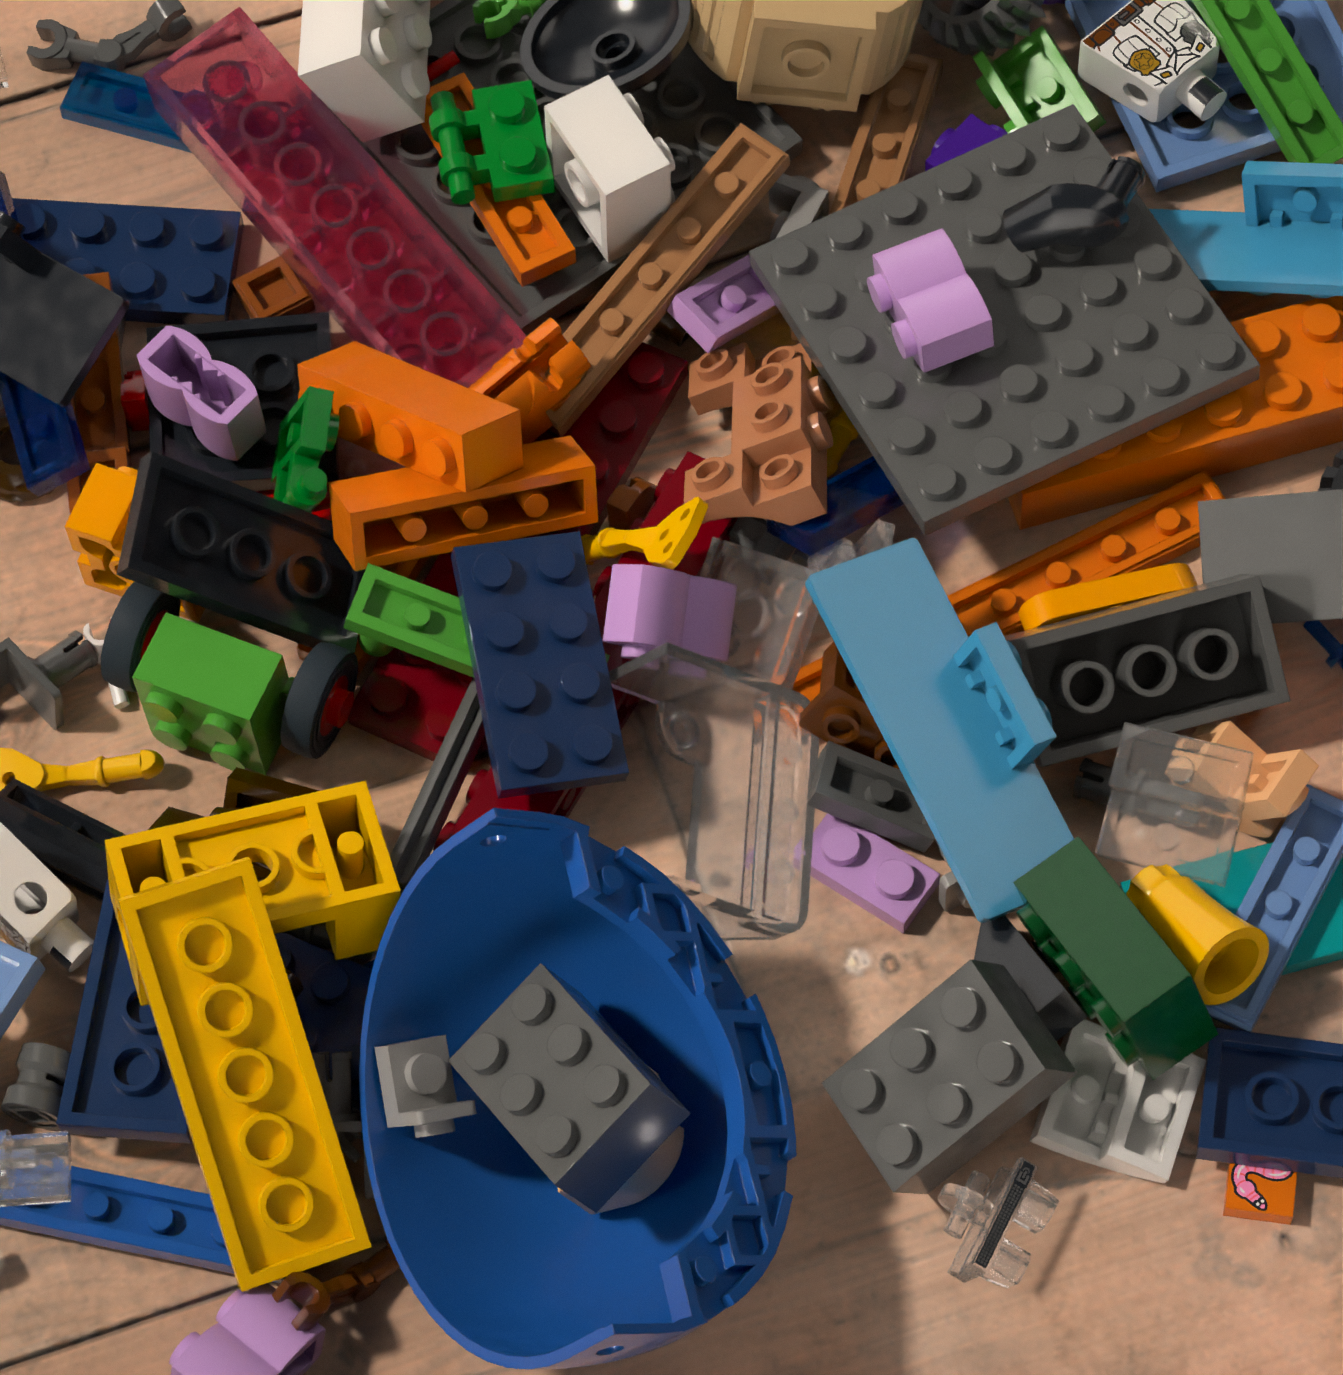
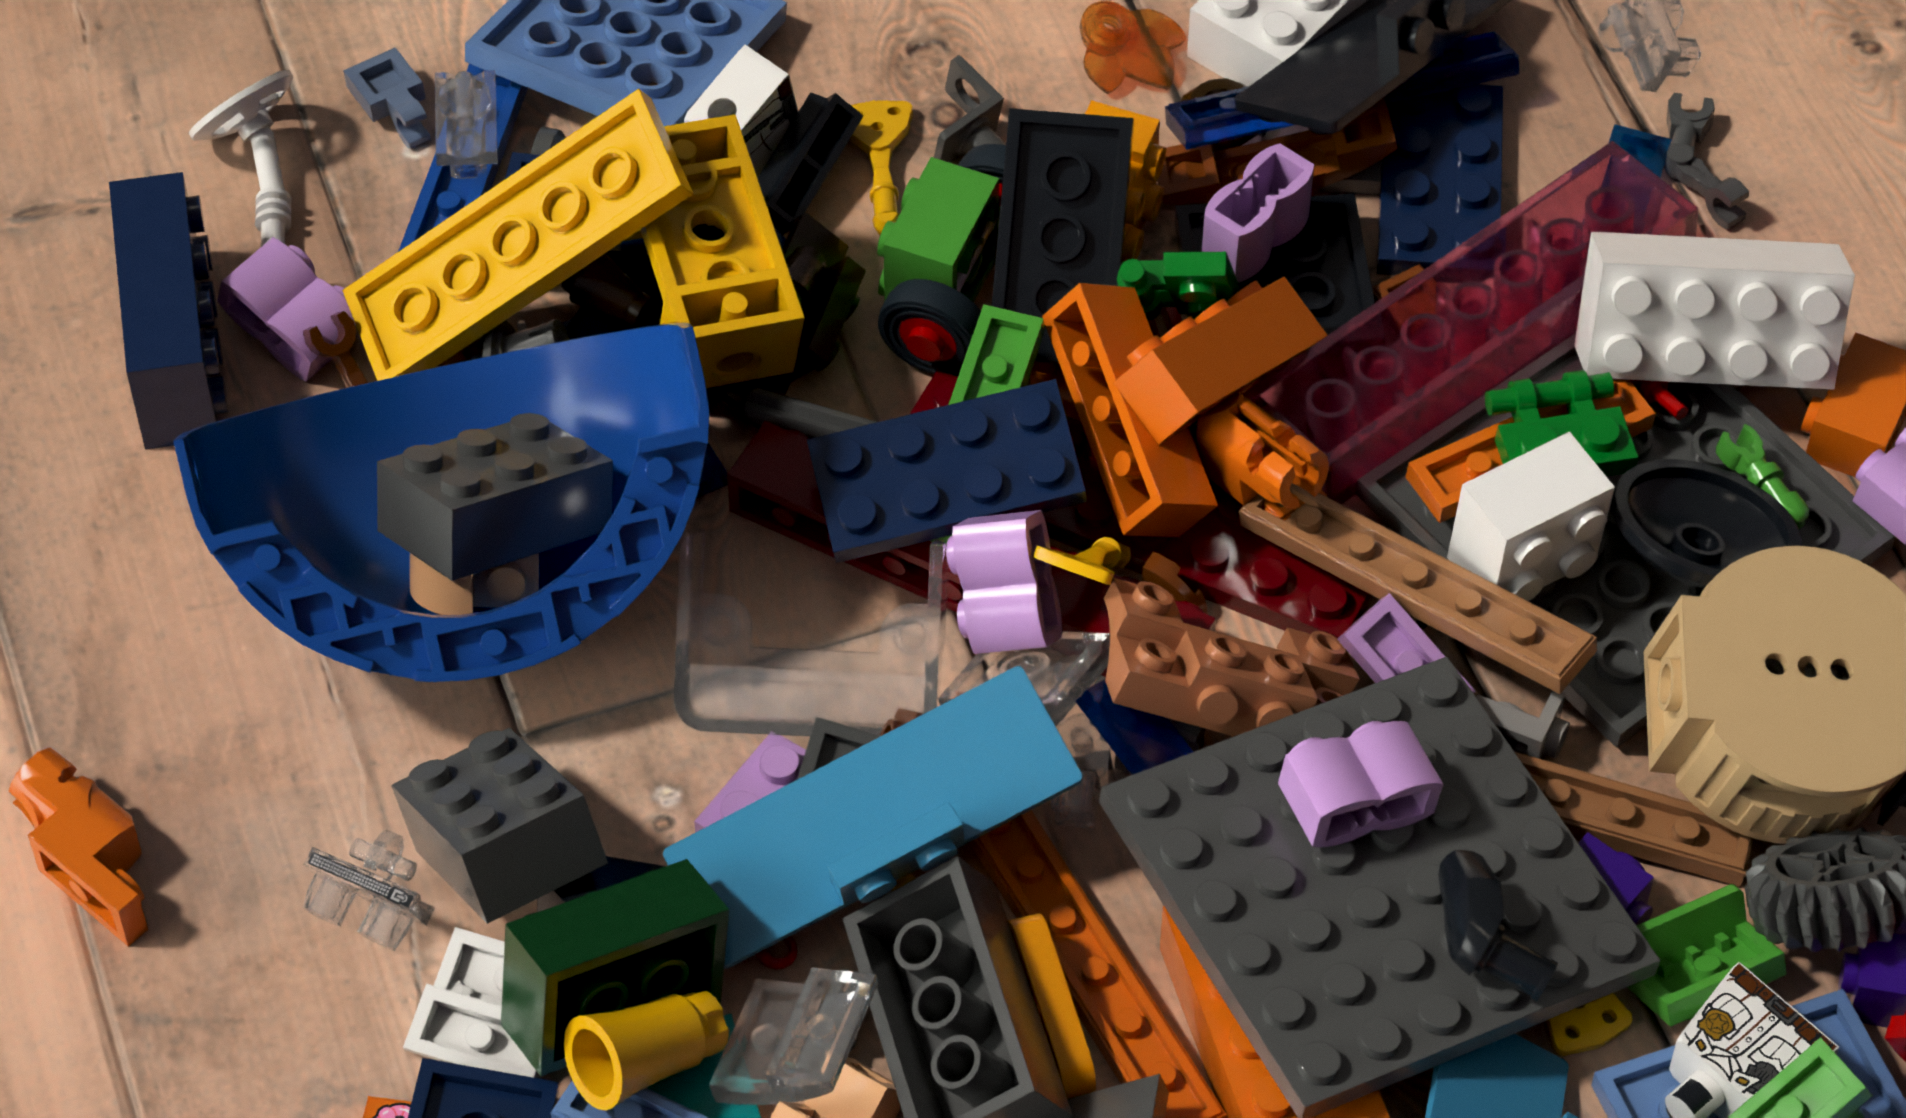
camera: 85 degrees right, 10 degrees down
(420, 1086) = (512, 390): light grey bracket -> none

